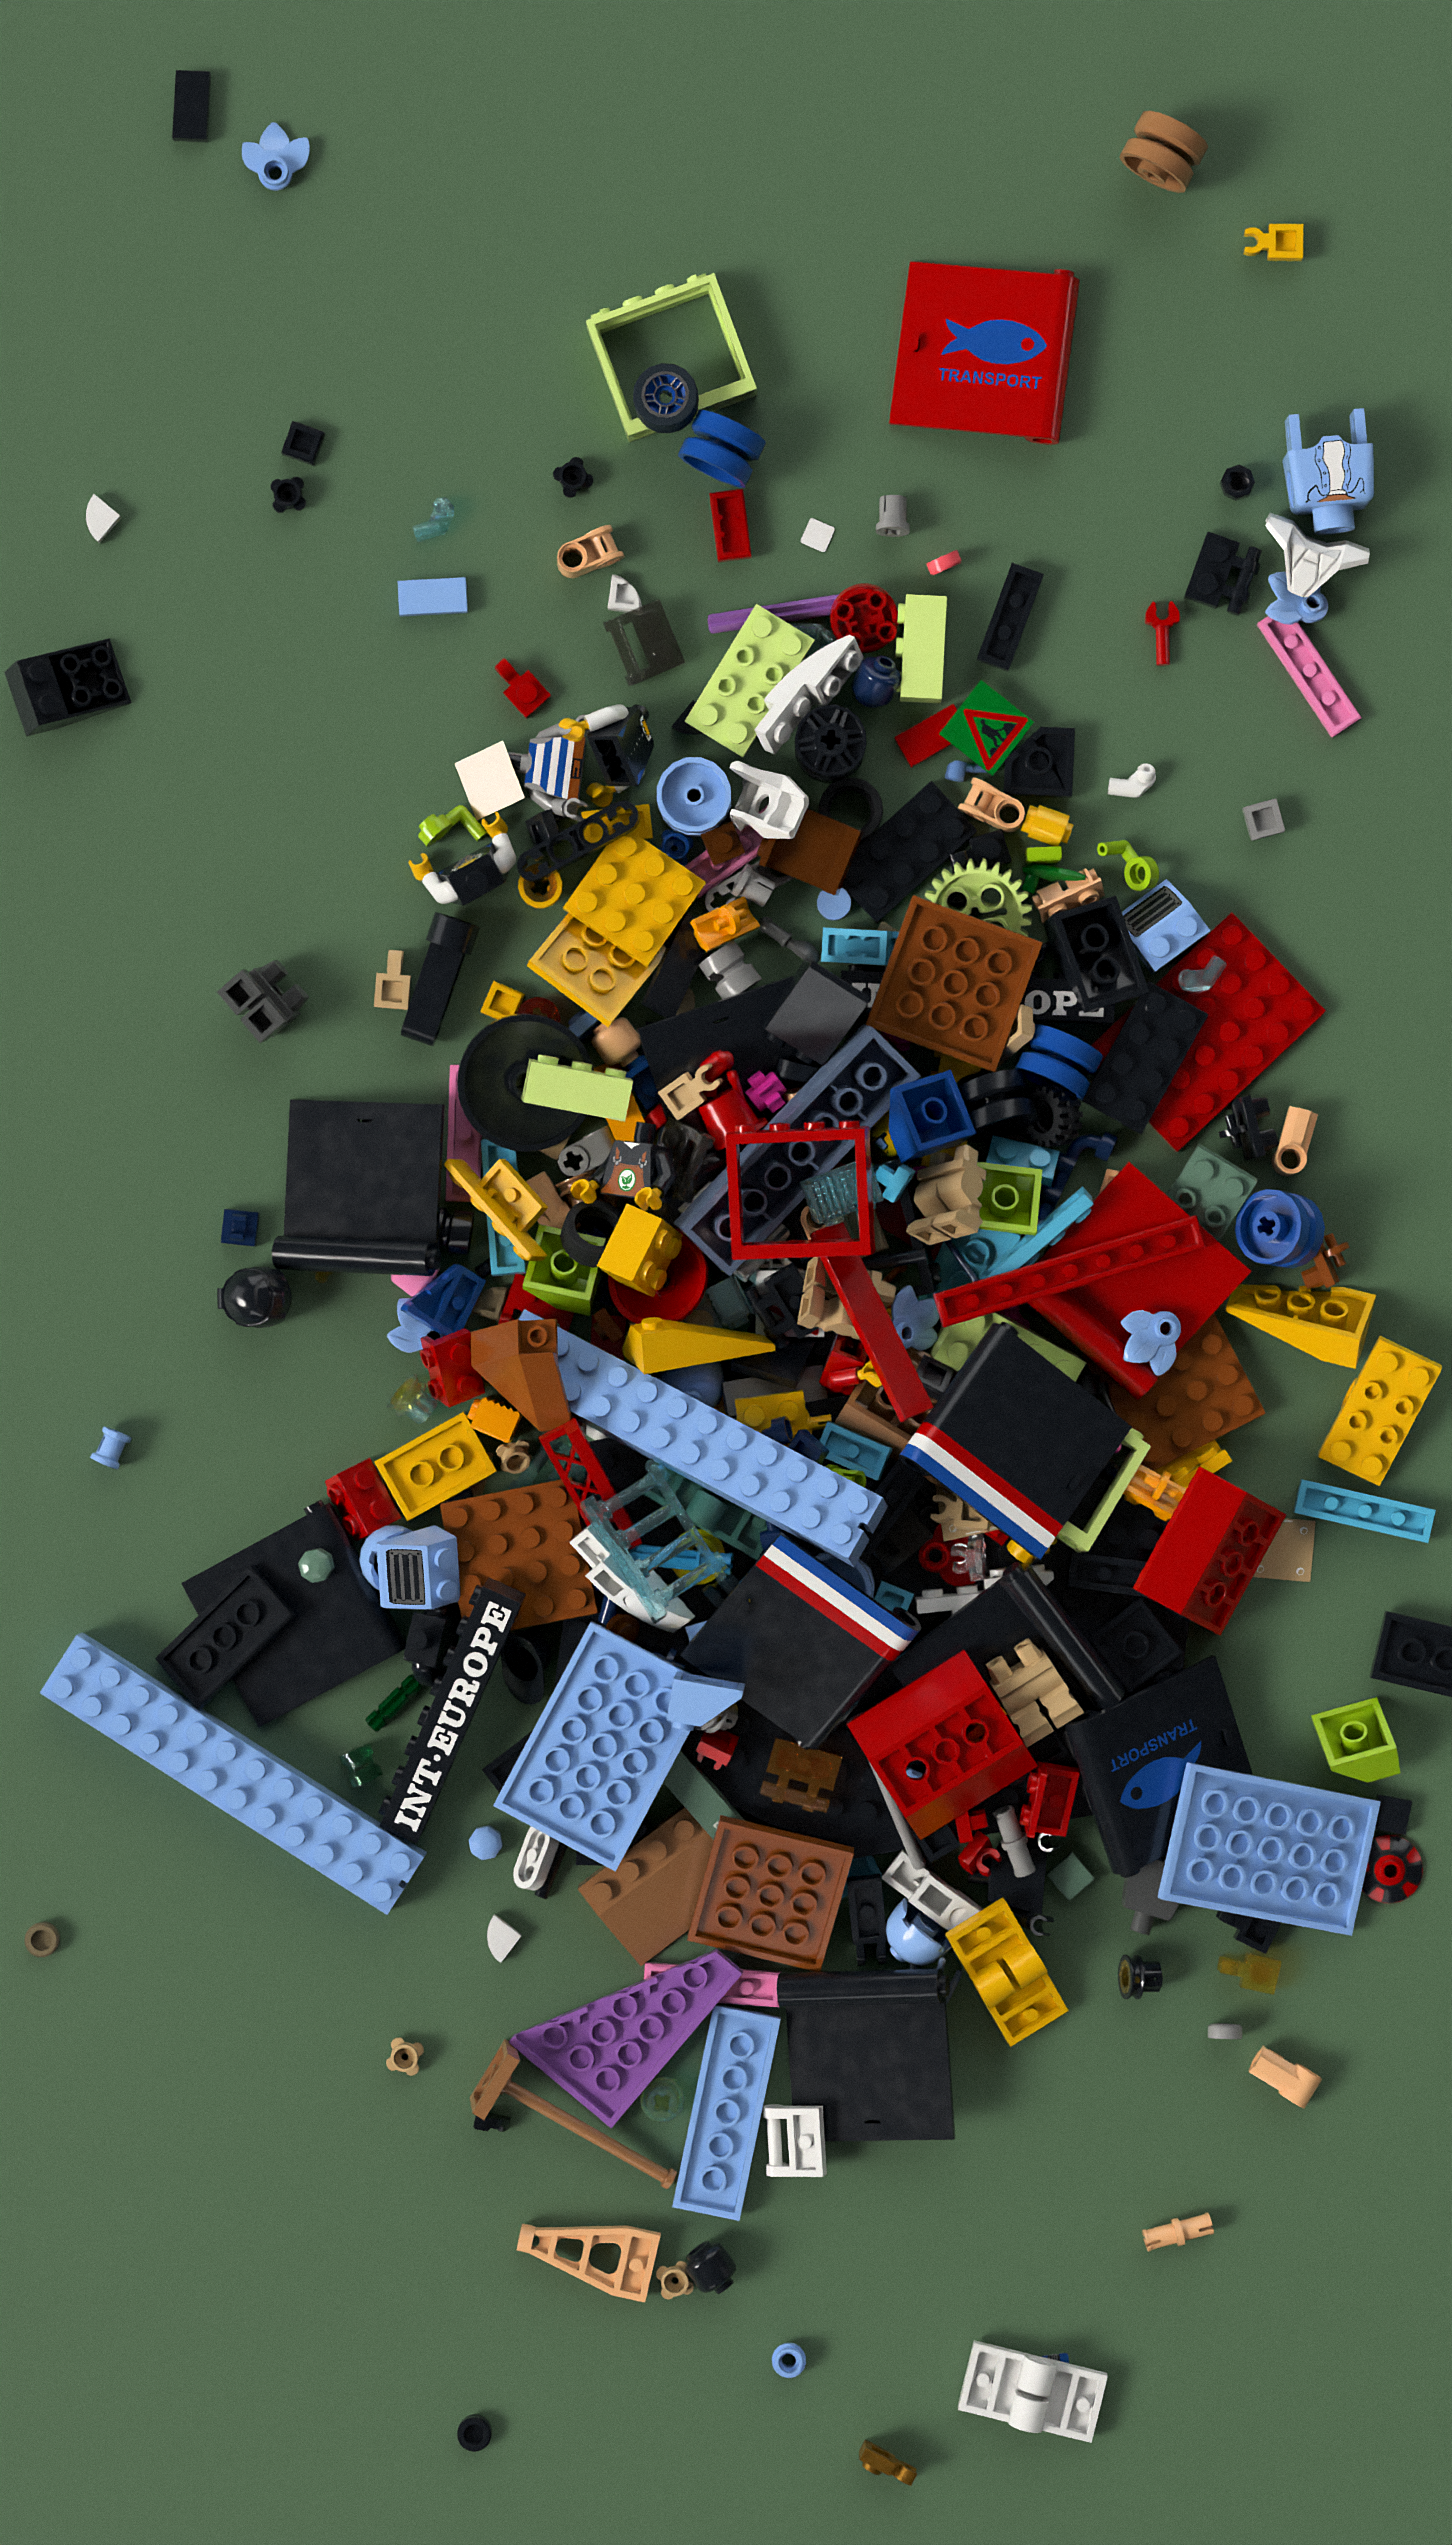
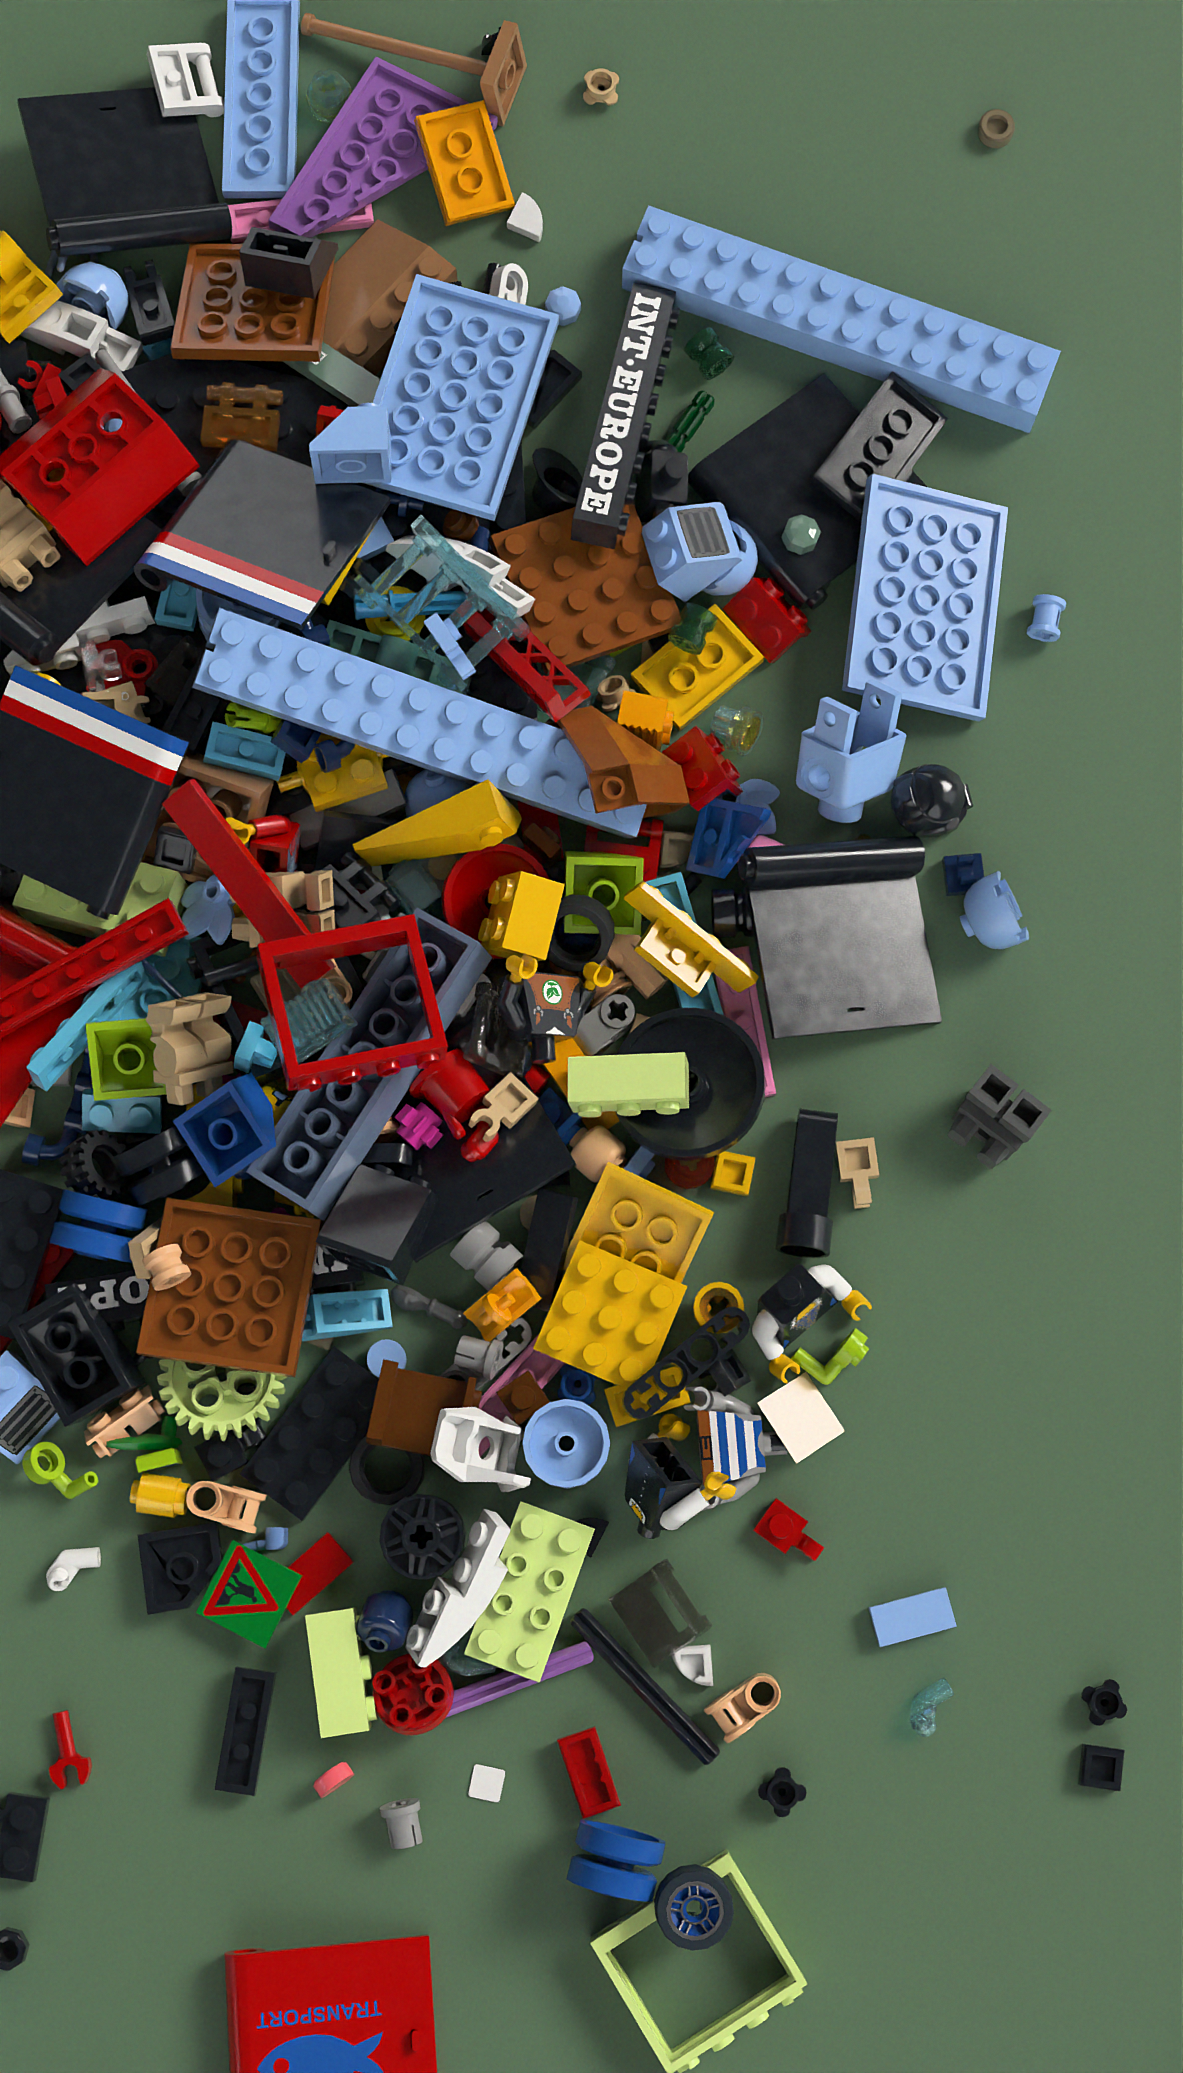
camera: 165 degrees right, 10 degrees down
(216, 1484) = (926, 596): none -> light blue plate
(223, 1182) = (993, 913): none -> light blue cylinder
(334, 1343) = (832, 753): none -> light blue piece
(438, 1490) = (692, 628): none -> clear green wheel
(548, 1999) = (464, 162): none -> light orange tile
(655, 1506) = (446, 636): none -> light blue plate
(669, 586) = (645, 1686): none -> black axle
(730, 1922) = (285, 262): none -> black slope
(1003, 1007) = (166, 1267): none -> light nougat wheel

